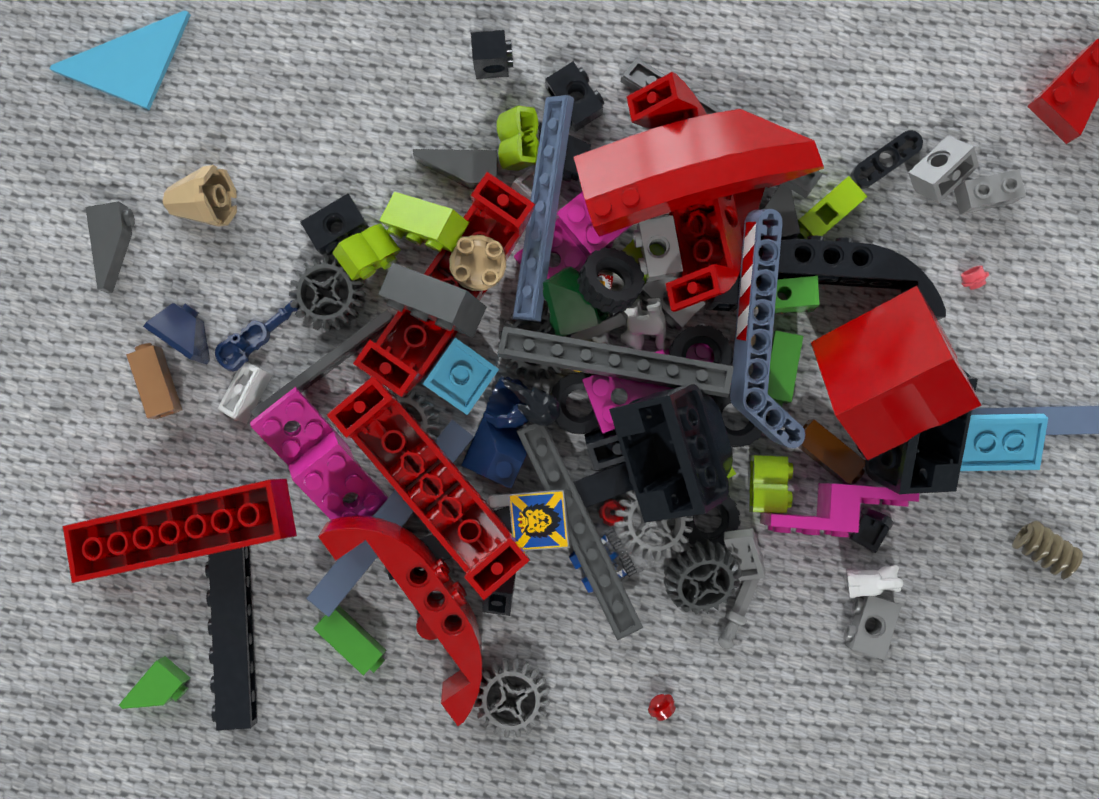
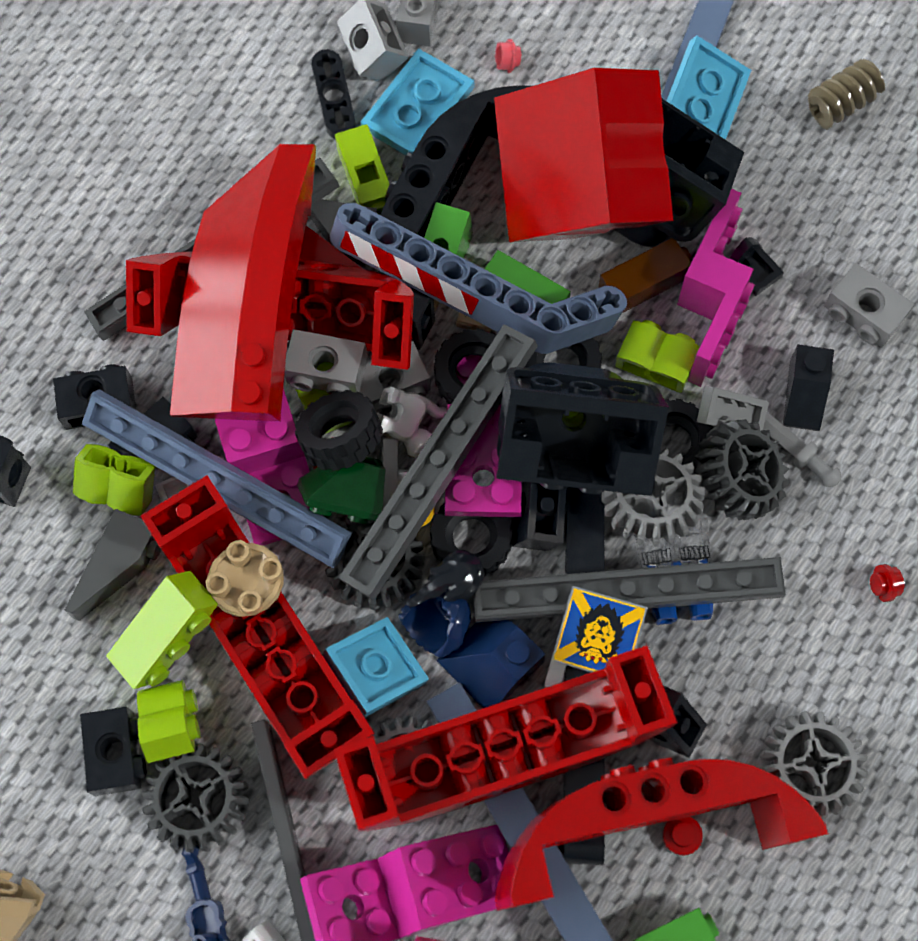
camera: 65 degrees left, 15 degrees down
(432, 300) = (265, 650): dark grey wedge -> none
(604, 511) = (621, 559): red plate -> none
(788, 602) = (808, 387): none -> black slope
(873, 581) = (816, 285): white animal -> none
(904, 225) = (415, 101): none -> medium azure plate

